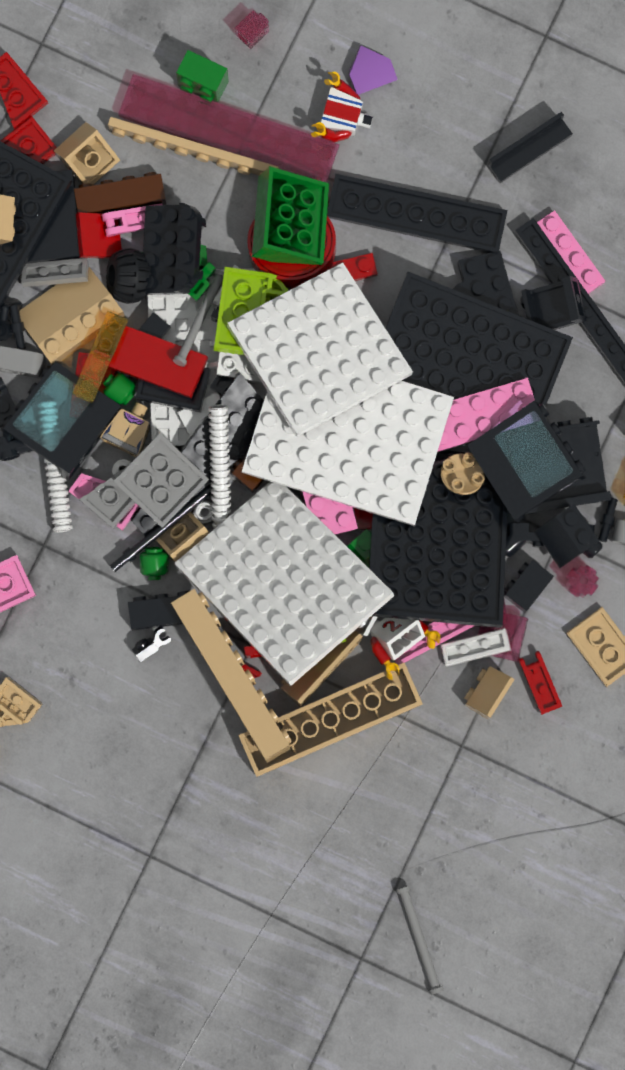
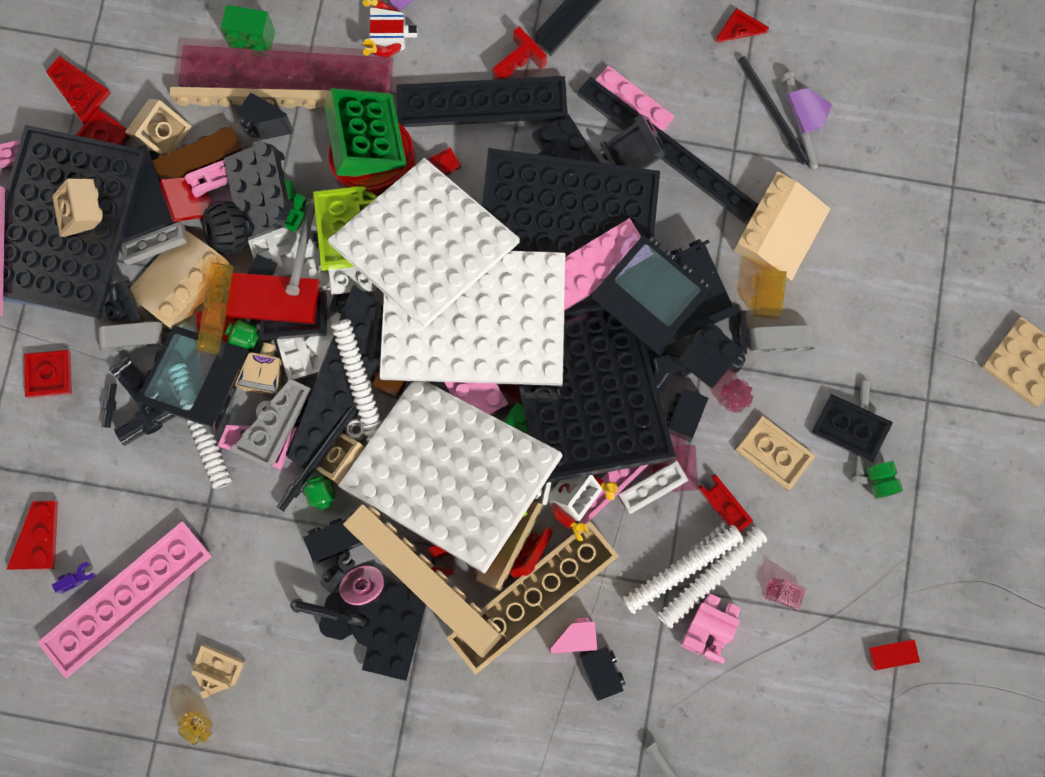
camera: 15 degrees left, 5 degrees down
(161, 480) = (304, 408): light grey plate -> none
(171, 656) = (361, 585): none -> bright pink dish
(187, 713) = (390, 631): none -> black plate
(192, 175) = (263, 119): none -> black slope
(339, 678) = (530, 553): none -> red hinge
(361, 769) = (577, 637): none -> bright pink slope
(376, 810) = (602, 673): none -> black brick
(462, 474) = (593, 324): tan dish -> none
(468, 177) = (520, 56): none -> red bracket
(480, 733) = (683, 569): none -> white piece
(489, 691) = (679, 526): tan slope -> none
(495, 791) = (713, 622): none -> bright pink hips
(507, 748) = (712, 577): none -> white piece
(572, 783) = (785, 593): none -> clear pink bracket

